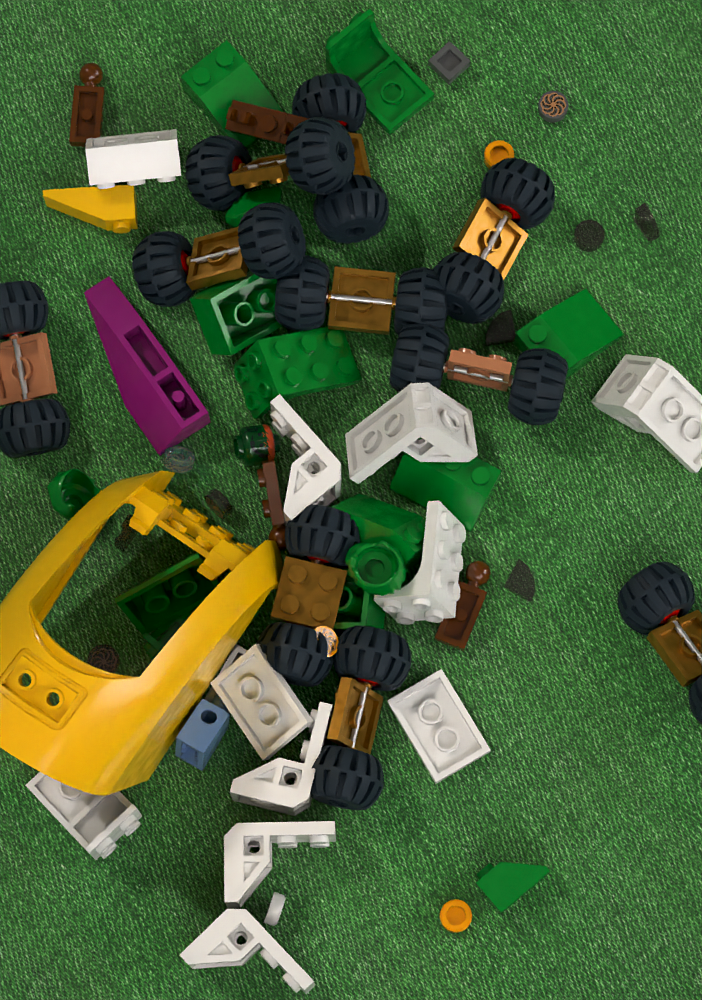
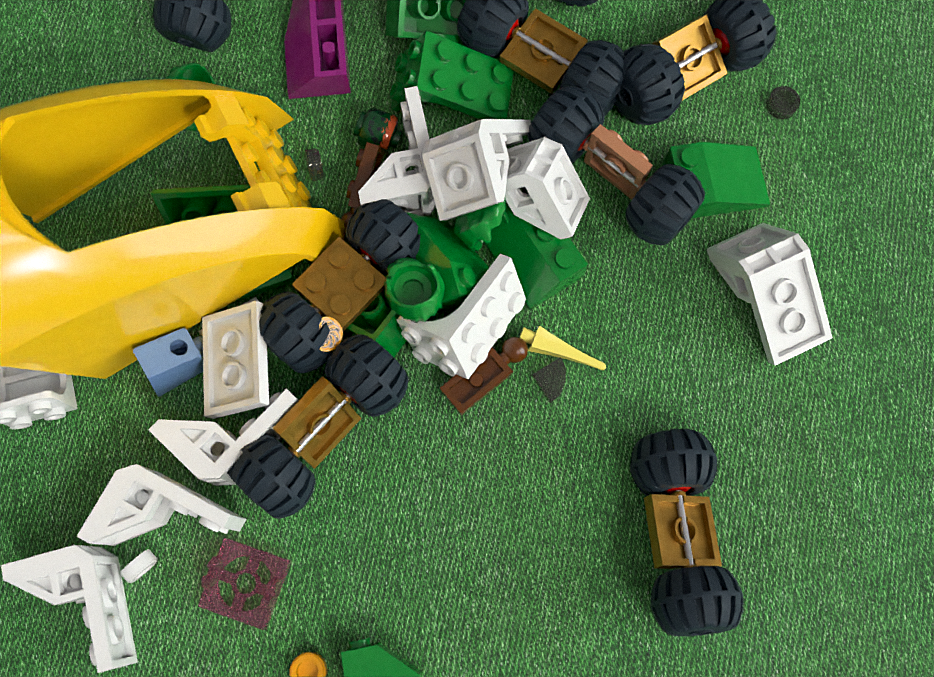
camera: 25 degrees right, 0 degrees up
(126, 536) = (218, 151): clear smoke tile -> none
(178, 459) = (302, 108): clear light blue tile -> none
(365, 440) = (471, 165): none -> white bracket
(390, 898) = (211, 596): none -> clear pink piece
(394, 481) = (477, 225): none -> green hair
(438, 726) = (396, 474): white plate -> none
(499, 553) = (546, 343): none -> light yellow piece
(501, 329) = (657, 143): clear smoke tile -> none
(646, 222) = (844, 114): clear smoke tile -> none

